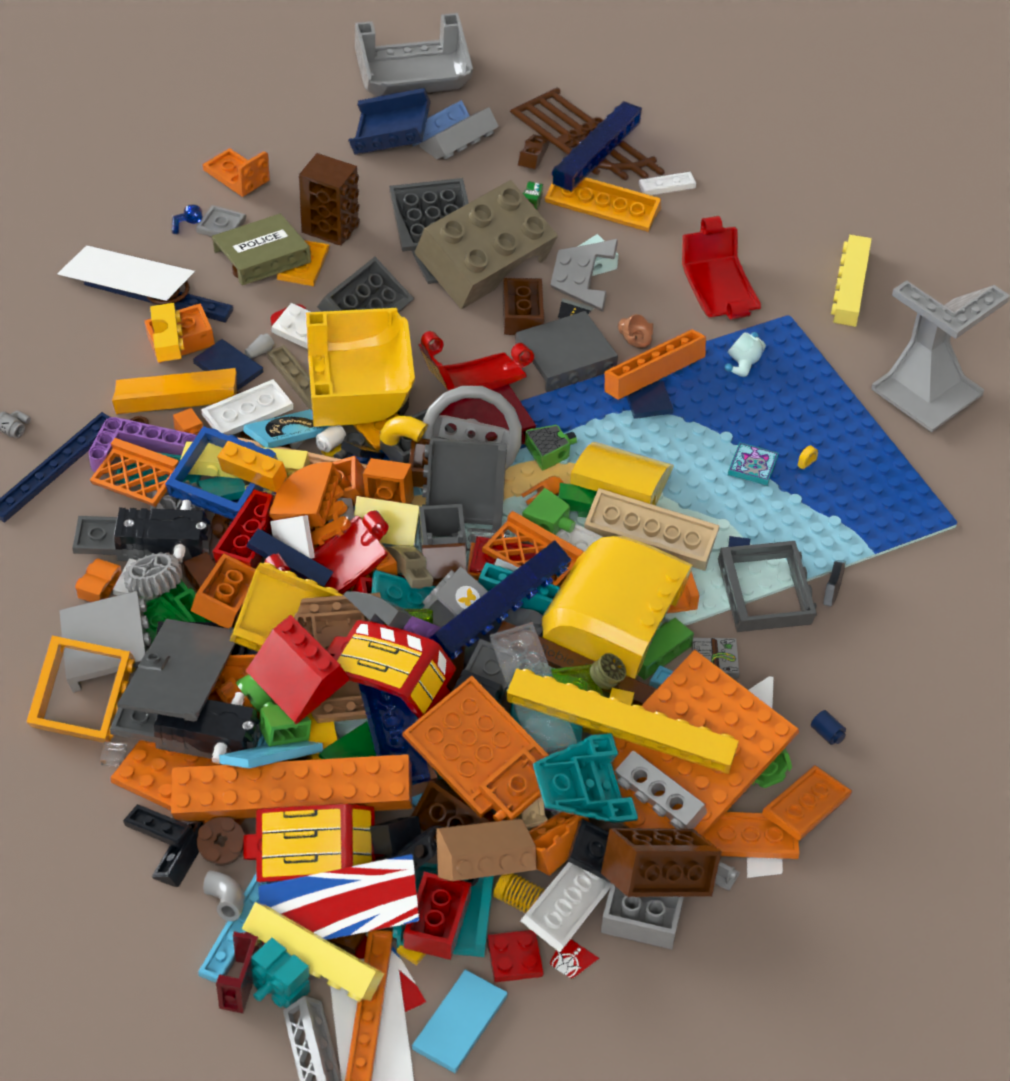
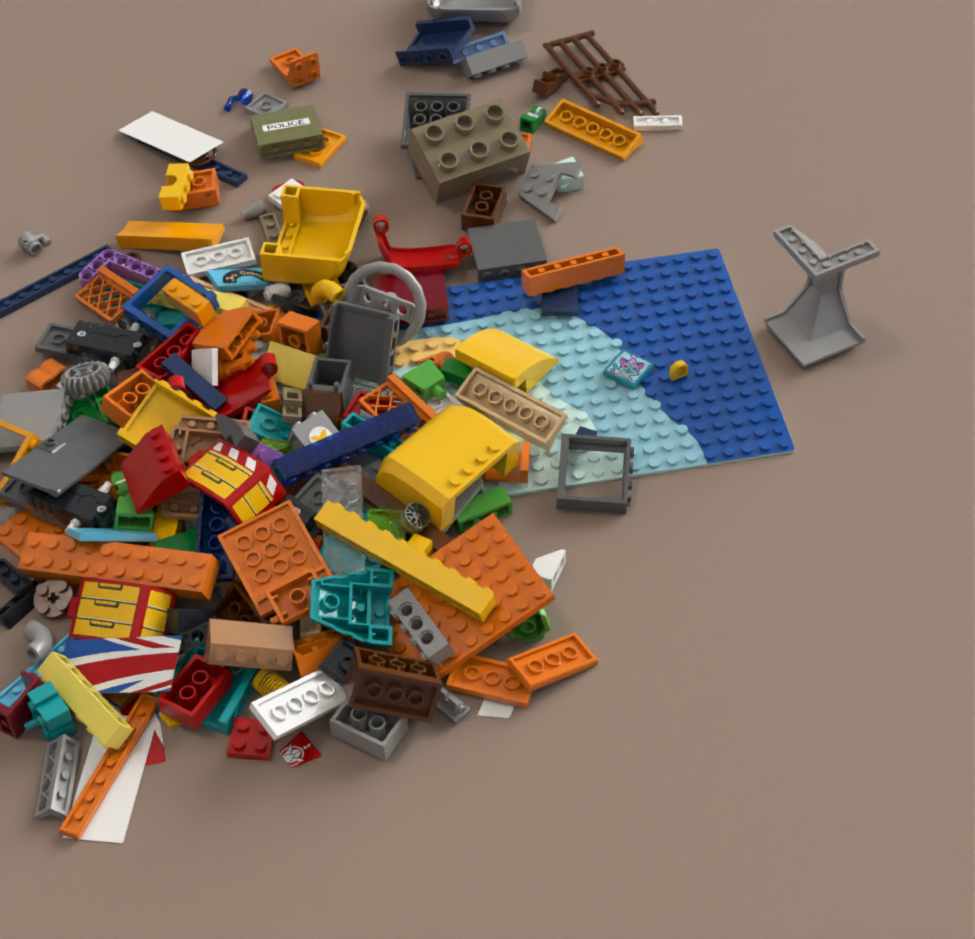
camera: 20 degrees right, 0 degrees up
(187, 422) = (169, 259): orange brick -> none
(225, 356) = (225, 214): dark blue tile -> none
(329, 199) = (351, 97): reddish brown brick -> none
(367, 289) = (360, 174): dark grey slope -> none
(459, 1021) = (184, 782): medium azure tile -> none
(549, 445) = (456, 325): torso -> none
(570, 308) = (528, 214): black sticker -> none
(596, 146) = (603, 82): clear blue brick -> none
(636, 330) = (575, 239): nougat piece -> none
(716, 272) = (667, 201): red panel -> none
(720, 652) = (528, 526): light grey tile -> none
(746, 352) = (661, 274): light aqua piece -> none
(828, 727) = (599, 602): dark blue brick -> none
(834, 583) = (658, 481): black tile -> none
(851, 280) = (793, 213): light yellow brick -> none

